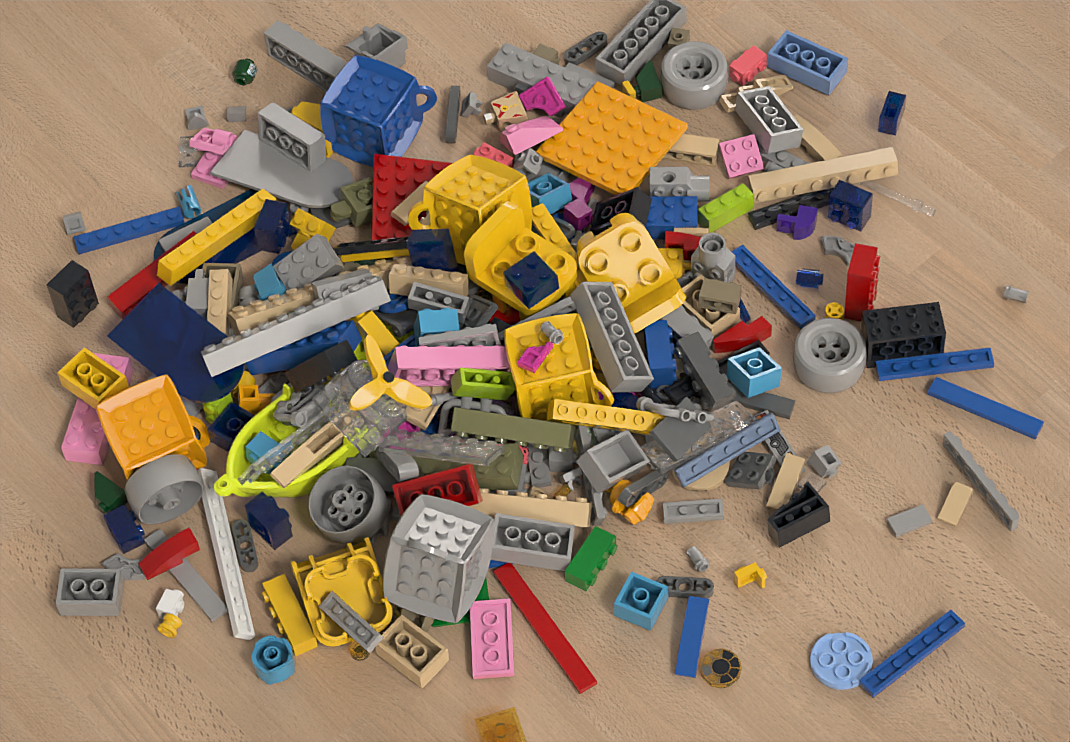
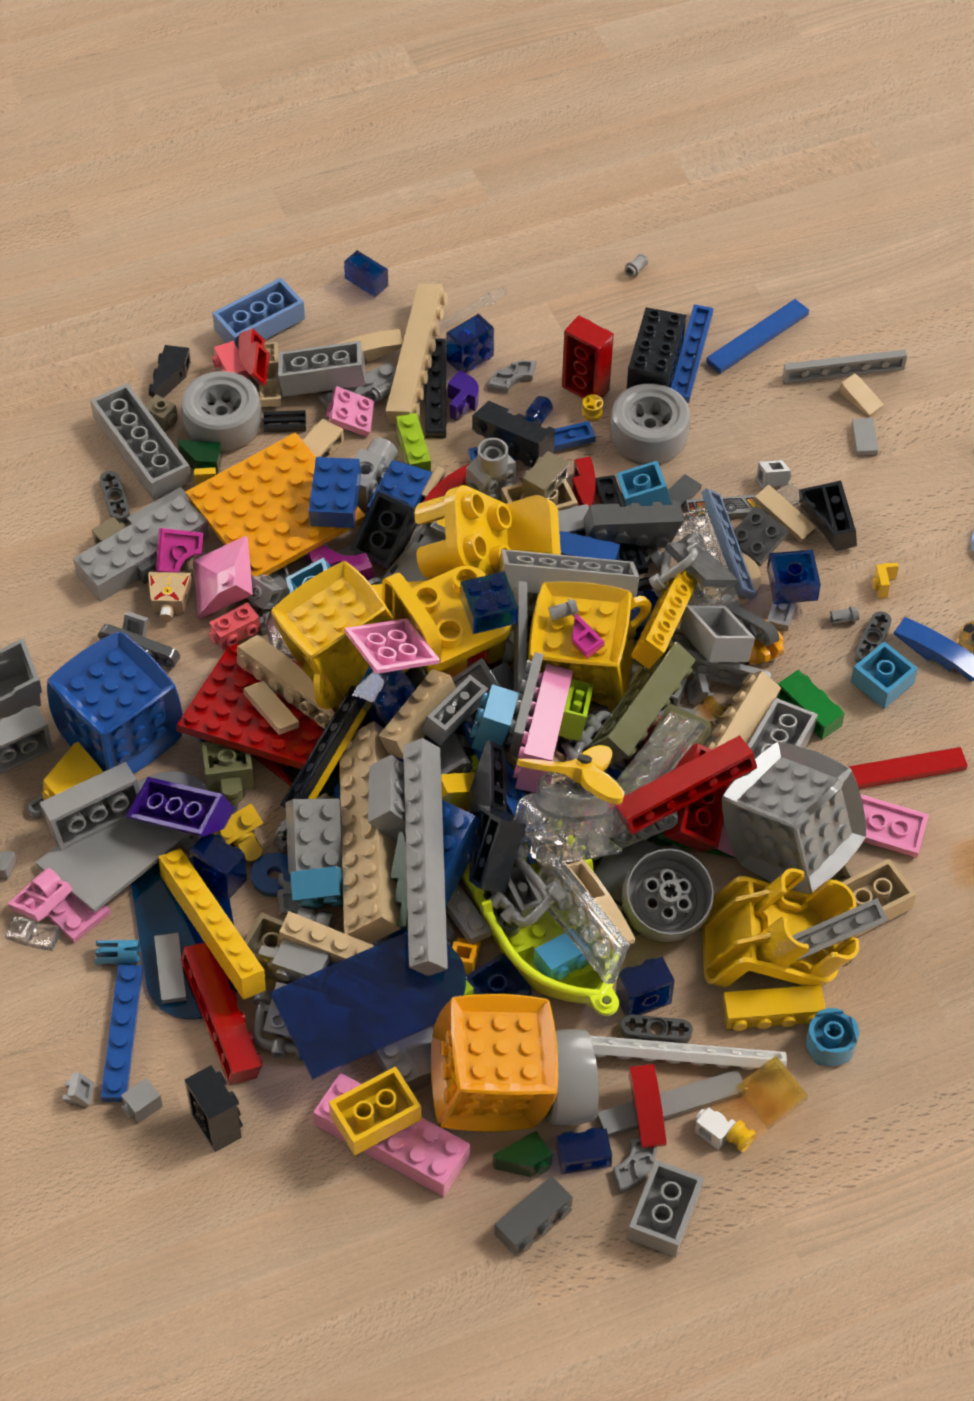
camera: 75 degrees left, 0 degrees up
(62, 515) = (533, 1216): none -> dark grey brick
(78, 255) = (141, 1101): none -> light grey brick
(205, 629) = (772, 1092): none -> clear yellow piece
(300, 182) = (180, 807): none -> dark purple slope
(386, 341) = (489, 780): none -> black slope
(422, 467) = (686, 784): none -> red brick
(445, 226) = (391, 646): none -> bright pink slope
(627, 164) = (335, 492): none -> blue brick
(706, 502) = (793, 576): none -> clear blue brick
(710, 111) = (296, 418): none -> black tile
(723, 32) = (171, 370): none -> black slope
(753, 72) = (254, 355): none -> red slope
(763, 265) = (524, 438): none -> black wedge

